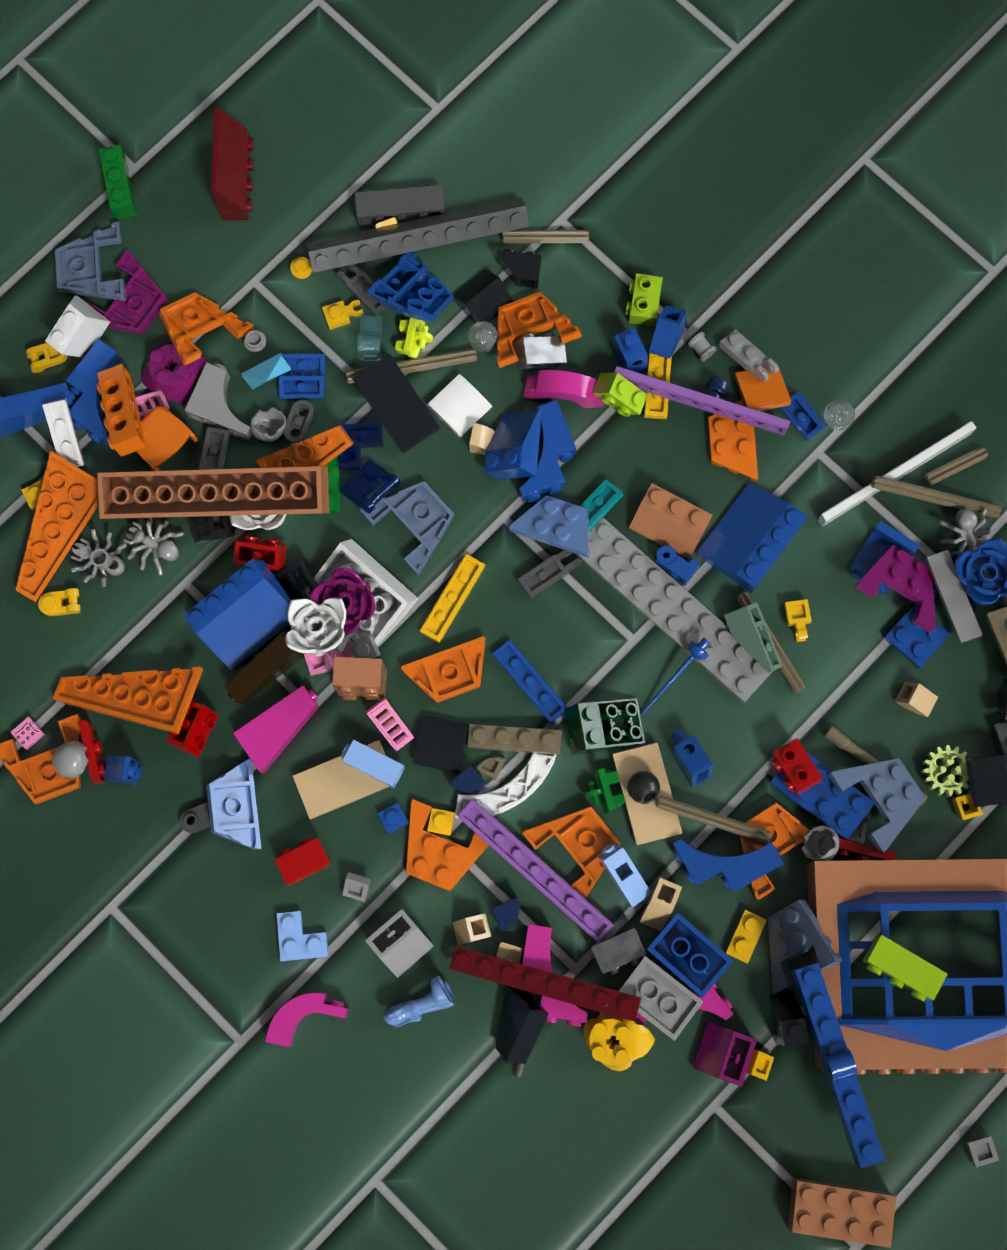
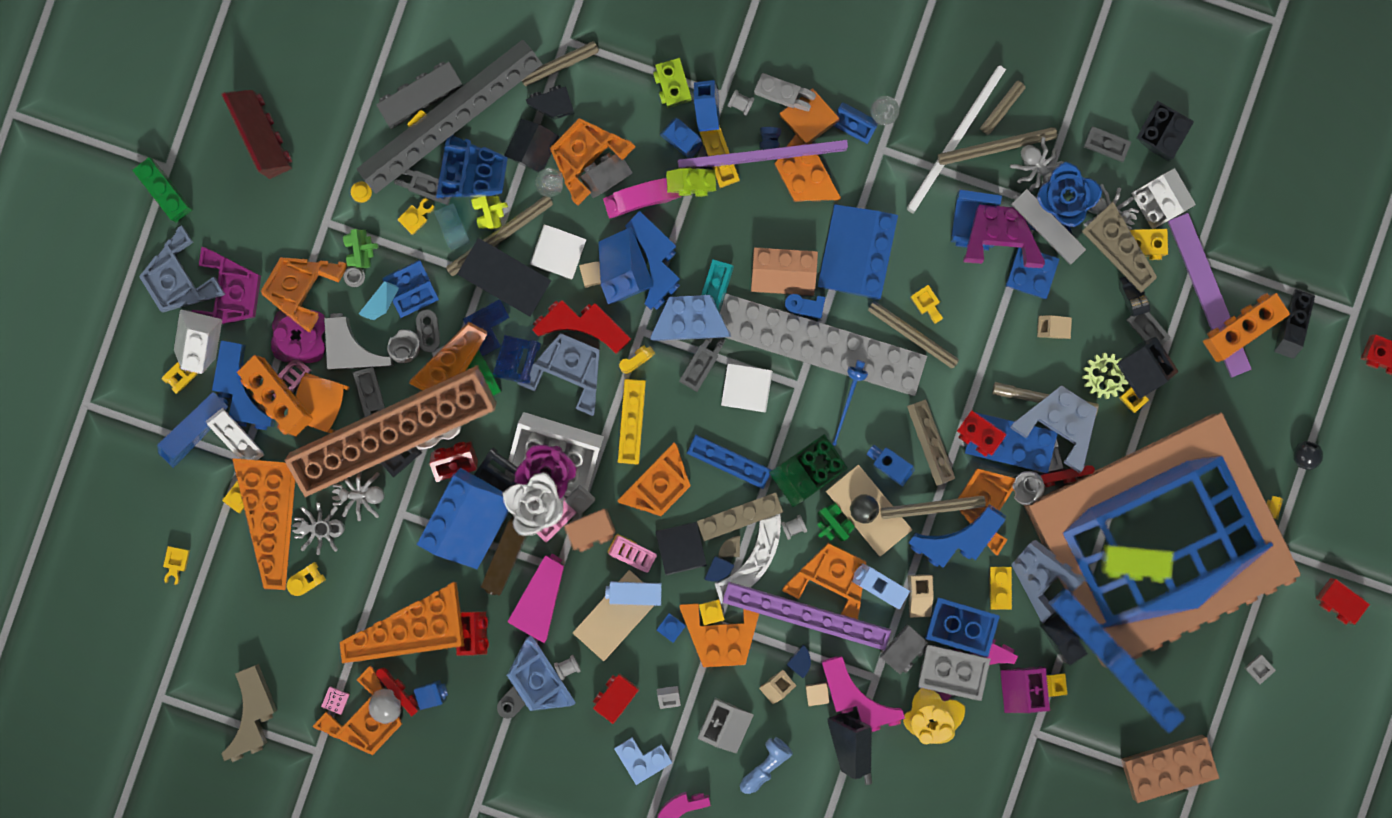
camera: 25 degrees left, 10 degrees up
(270, 808) = (567, 667): none -> light grey bush
(275, 317) = (362, 248): none -> bright green hips
(459, 484) = (592, 322): none -> red arch
(492, 539) = (642, 355): none -> yellow plate
(545, 983) = (857, 704): dark red plate -> none
(563, 775) = (794, 527): none -> light grey bush
(581, 617) = (746, 388): none -> white slope
(740, 755) = (931, 442): none -> dark tan plate
(753, 635) = (898, 338): sand green slope -> none

